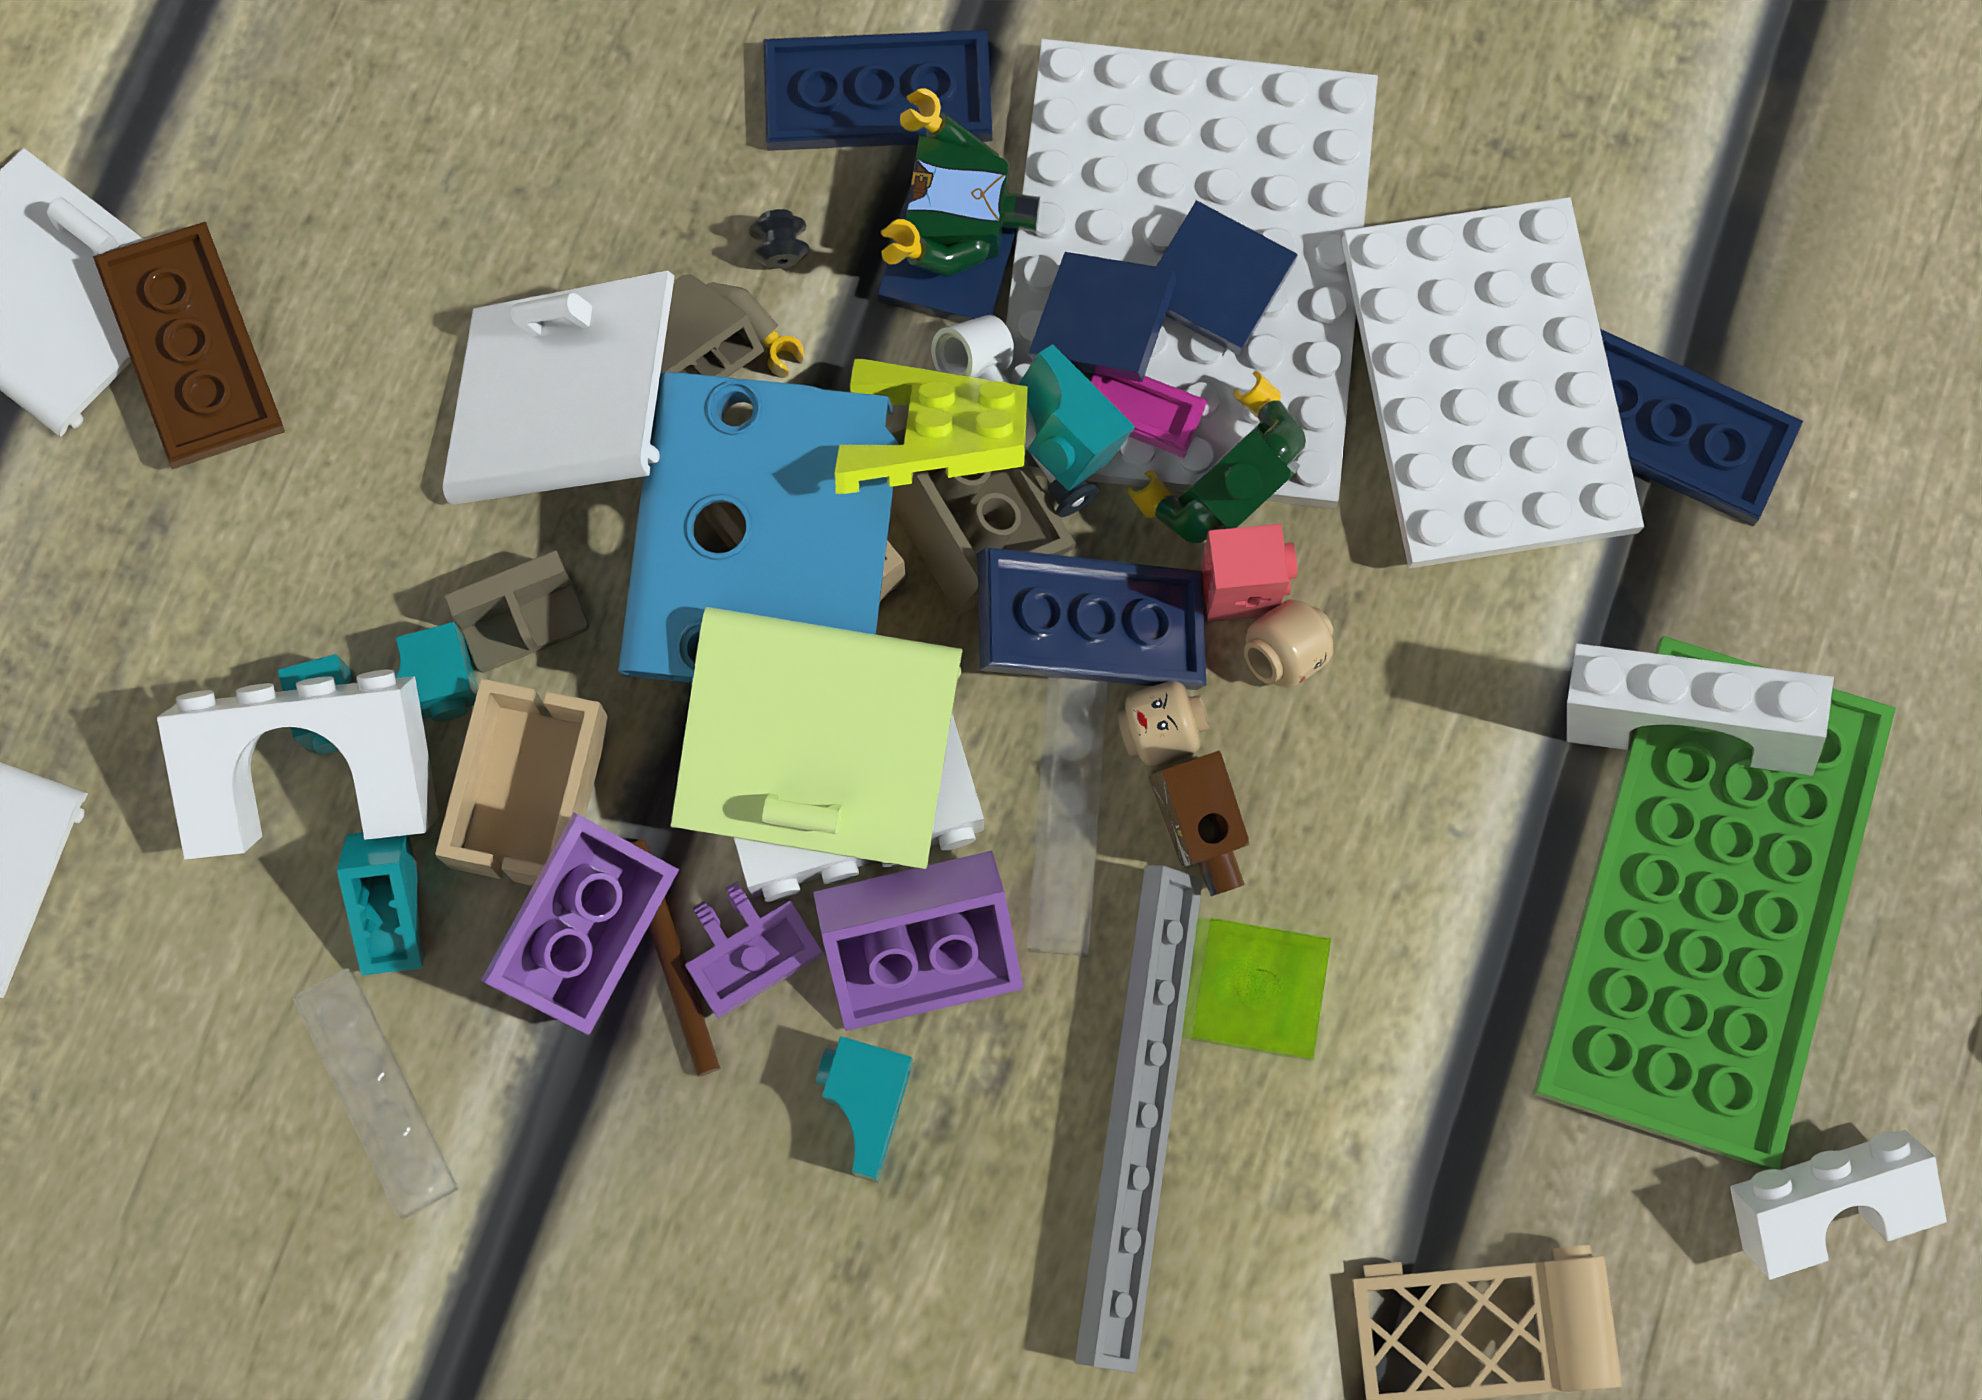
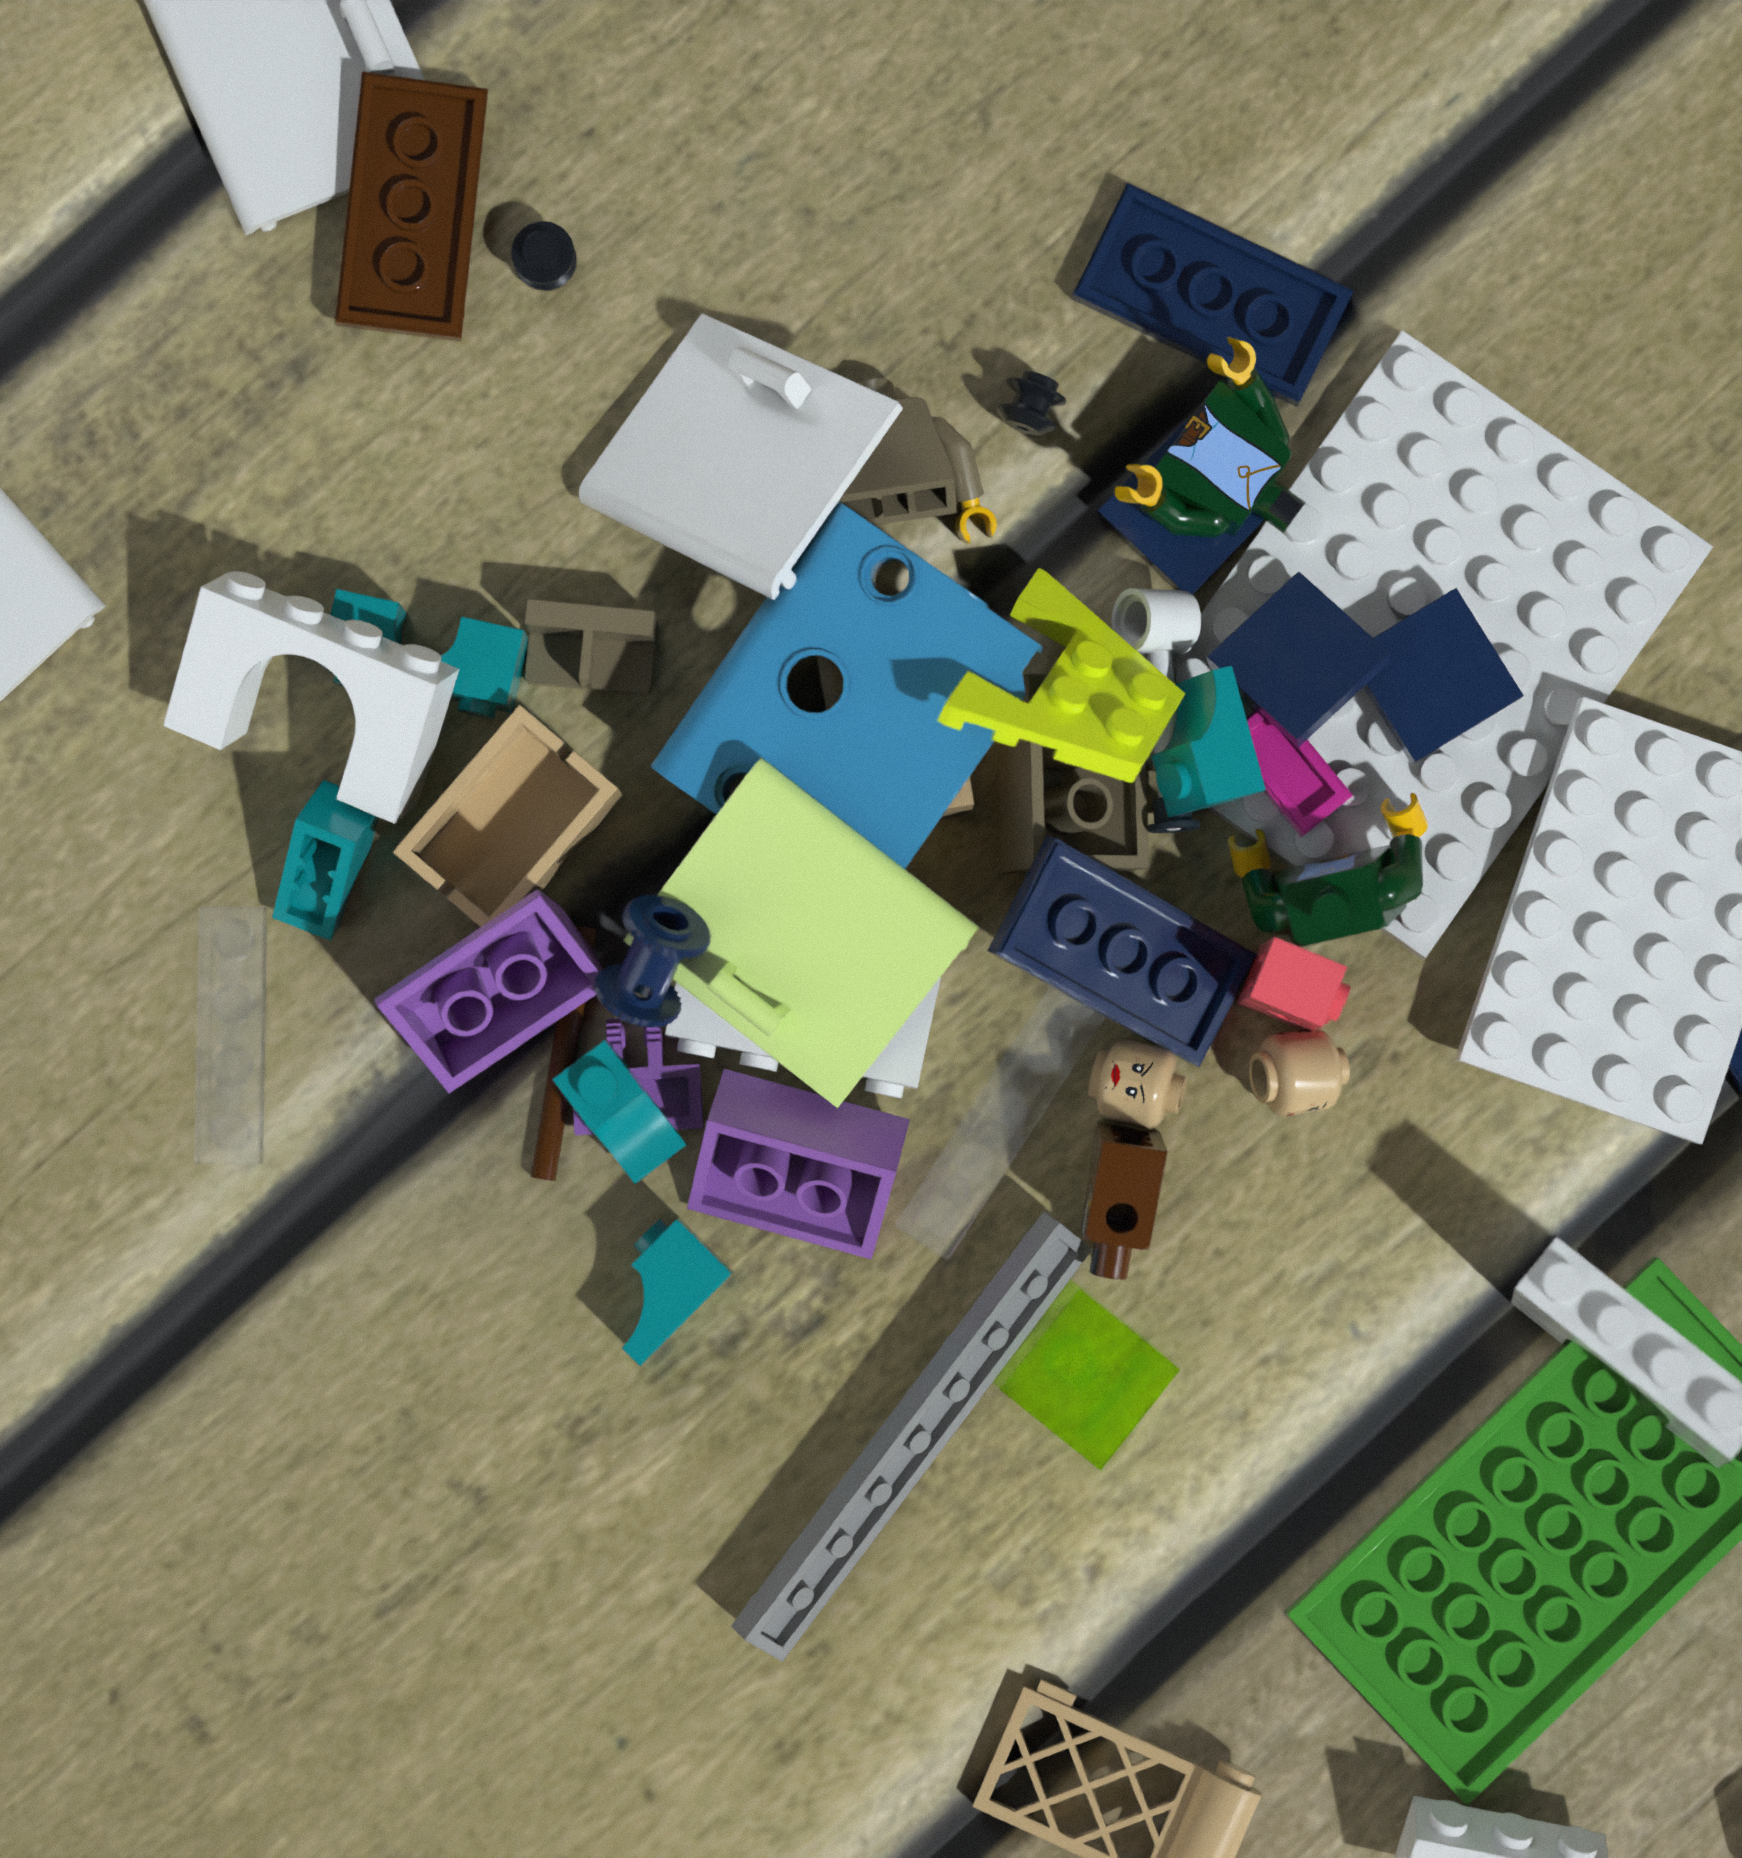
camera: 25 degrees right, 10 degrees up
(319, 327) = (544, 256): none -> black wheel
(703, 824) = (662, 936): none -> dark blue hose
(742, 970) = (619, 1111): none -> teal arch

